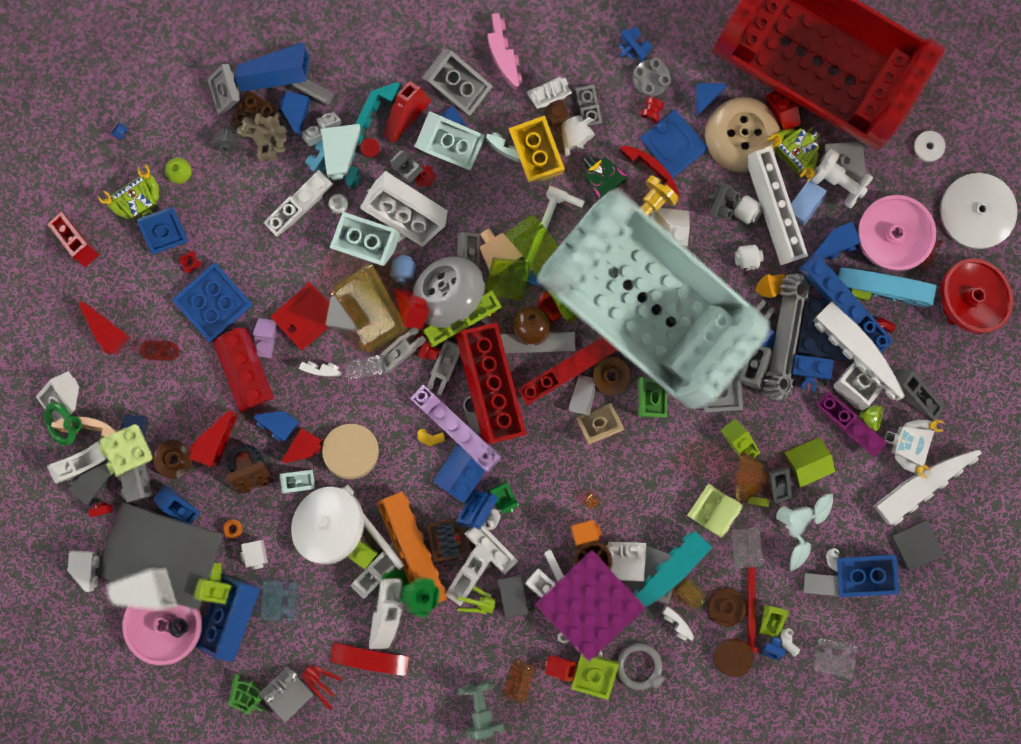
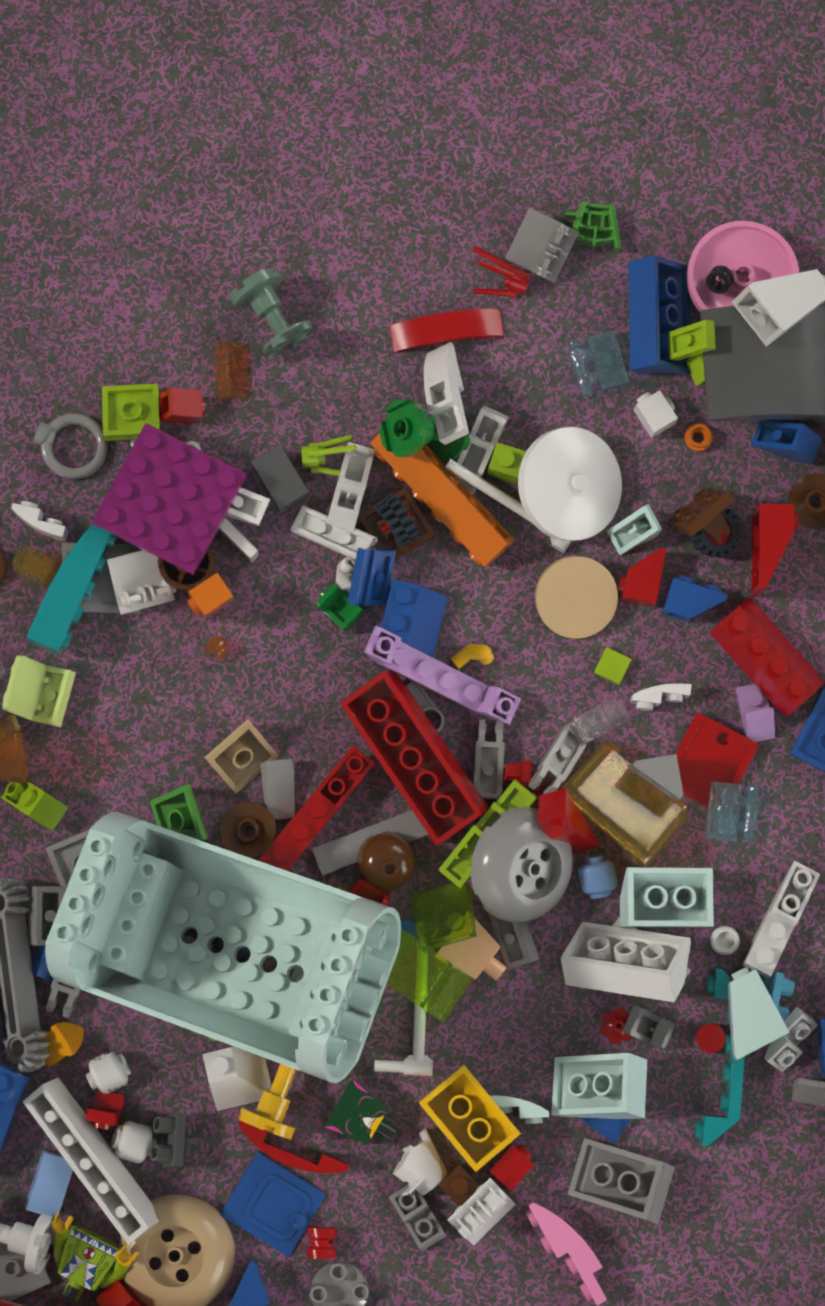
camera: 155 degrees right, 5 degrees down
(308, 281) = (725, 809): none -> clear light blue plate
(343, 399) = (612, 666): none -> lime tile
(406, 108) = (680, 1109): red slope -> none
(520, 113) = (512, 1165): none -> red brick
(757, 233) = (106, 1110): none -> red bracket

